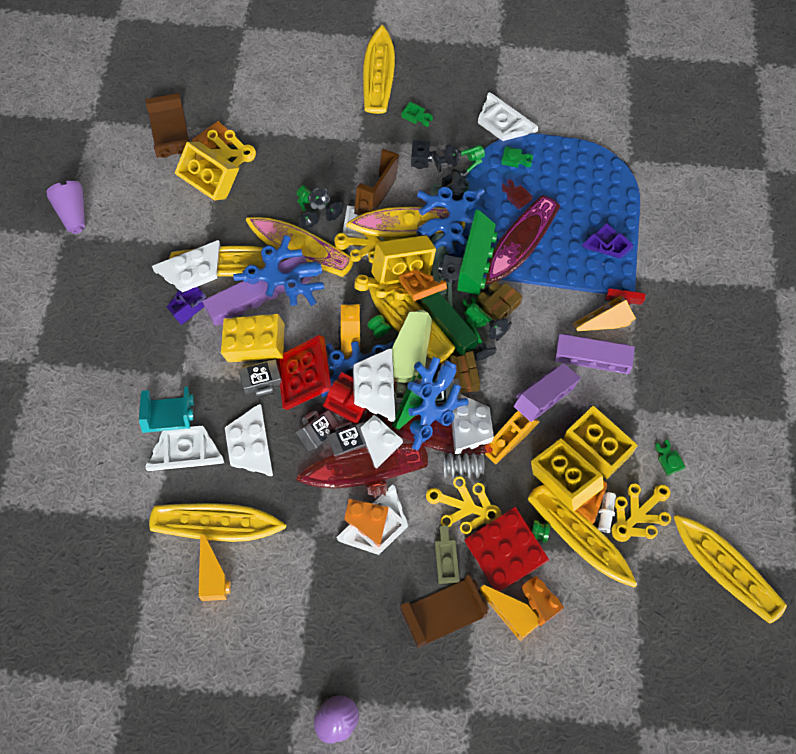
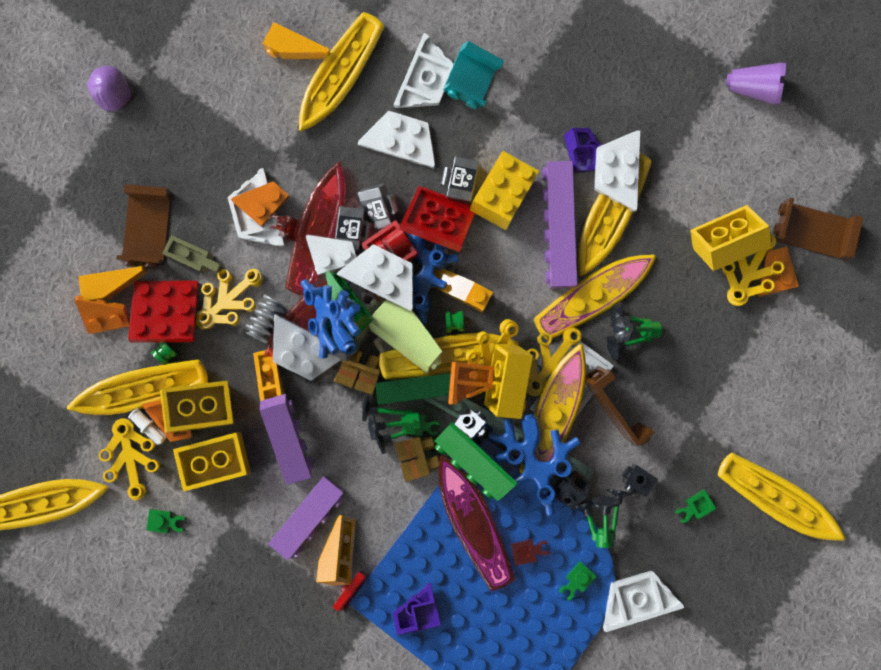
camera: 115 degrees right, 20 degrees up
(274, 277) = (558, 242): blue plant -> none

